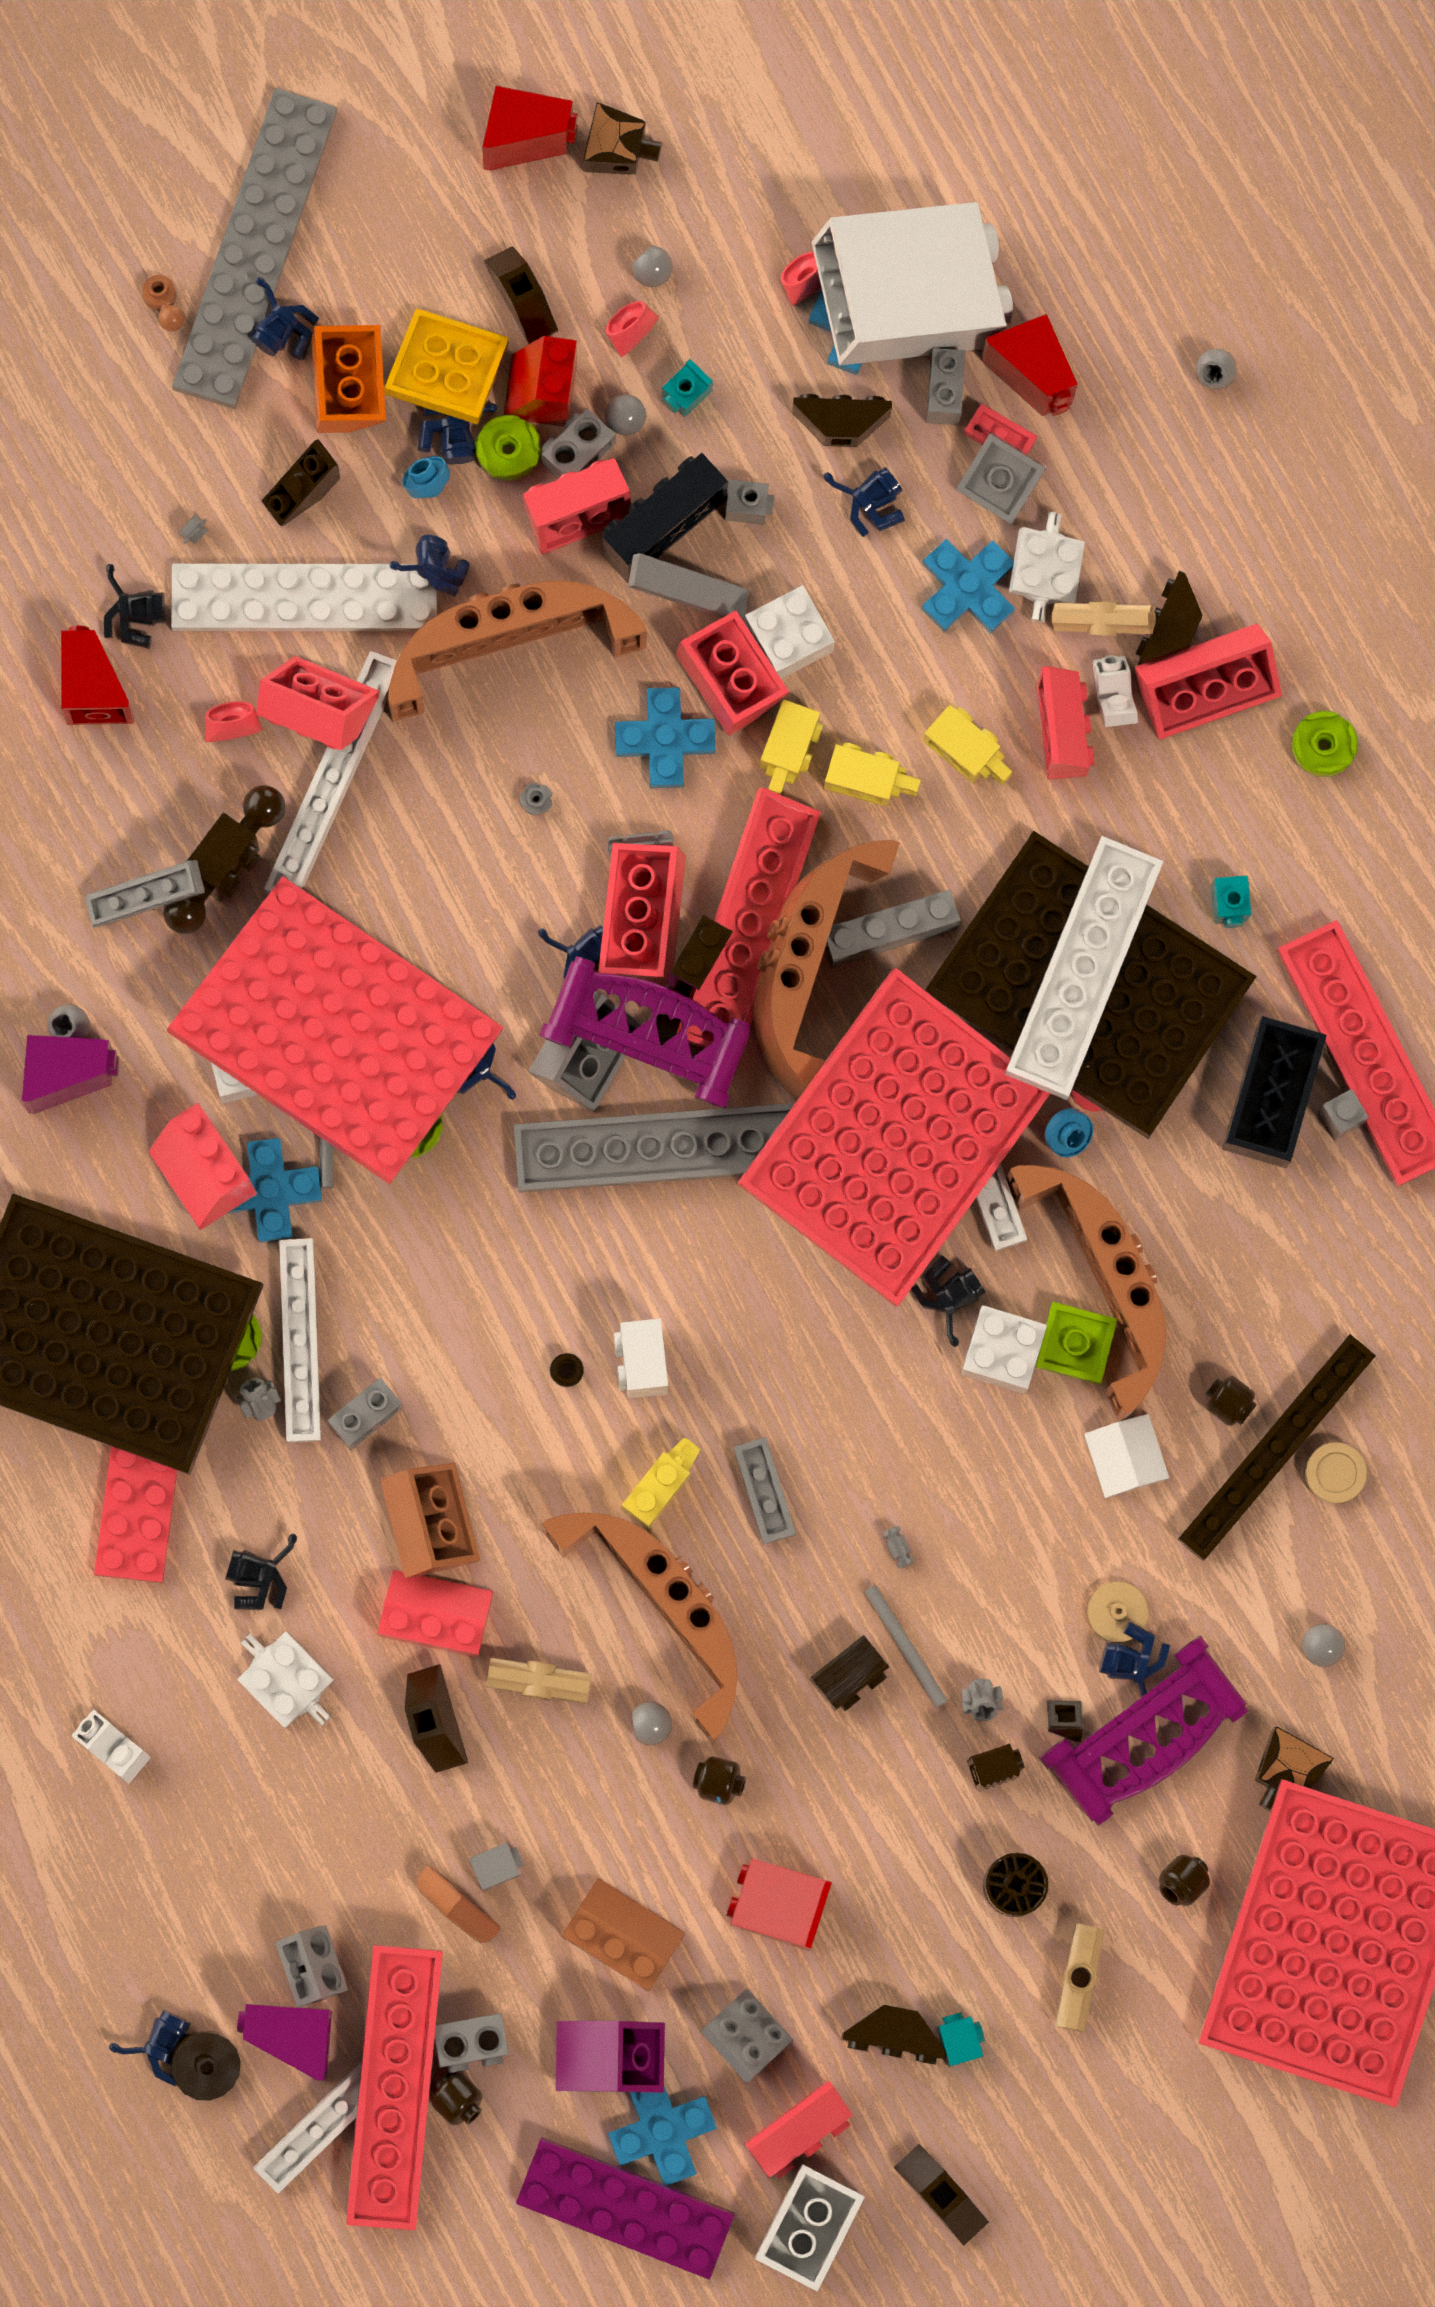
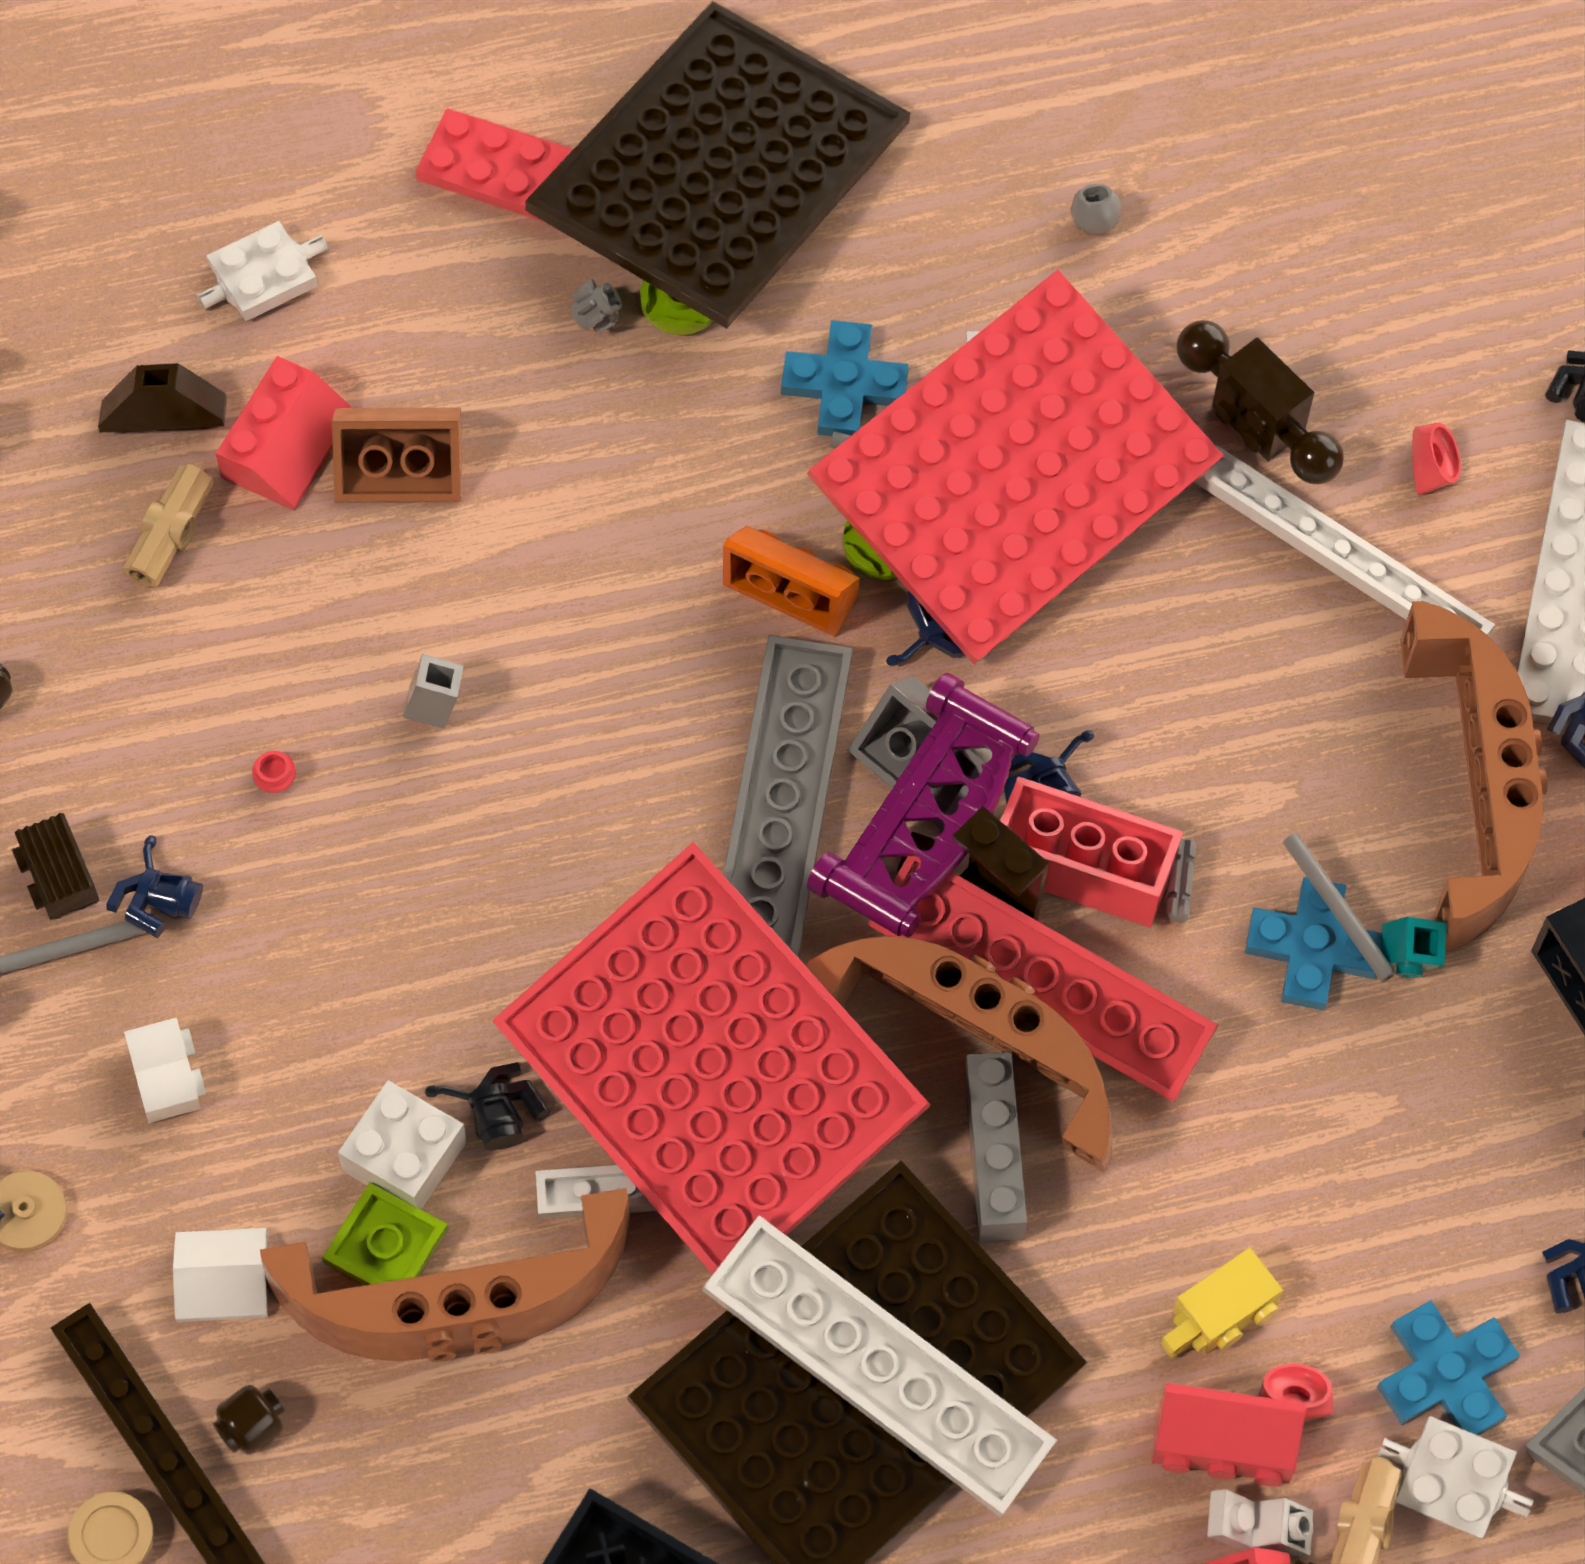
camera: 110 degrees right, 15 degrees down
(65, 1070) = (1041, 179): magenta slope -> none
(89, 682) = (1516, 309): red slope -> none
(111, 1746) = (251, 85): white slope -> none
(144, 894) = (1234, 304): light grey tile -> none
(200, 1167) = (890, 308): coral slope -> none
(253, 1571) = (398, 262): black piece -> none
(300, 1340) = (654, 367): white plate -> none
(316, 702) = (1439, 543): coral slope -> none
(365, 1414) = (544, 411): light grey brick -> none
(465, 1184) = (789, 579): none -> orange slope
(530, 805) = (1264, 783): light grey plate -> none
(566, 1359) = (533, 633): dark brown plate -> none
(634, 1551) = (207, 683): nougat slope -> none
(635, 1429) = (433, 691): none -> light grey brick
(640, 721) = (1339, 907): none -> light grey piece
(643, 1358) = (516, 715): white brick -> none
(651, 1723) = (74, 631): light grey piece -> none
(657, 662) = (1414, 945): none -> teal brick
(661, 1483) = (356, 705): light yellow hinge -> none
(686, 587) = (1505, 998): light grey tile -> none
(726, 1536) = (274, 772): none -> coral plate
(731, 672) = (1382, 1028): coral slope -> none
(764, 1491) = (314, 826): light grey plate -> none
(789, 743) = (1269, 1083): light yellow hinge -> none
(790, 632) = (1423, 1118): white brick -> none
(847, 1587) = (166, 892): none -> dark blue piece
(868, 775) = (1208, 1169): light yellow hinge -> none
(898, 1547) = (194, 966): light grey piece -> none
(989, 1541) = (163, 1069): none -> white brick
(1017, 685) = (1300, 1385): none -> coral piece
(1069, 1132) = (664, 1301): dark azure plate -> none

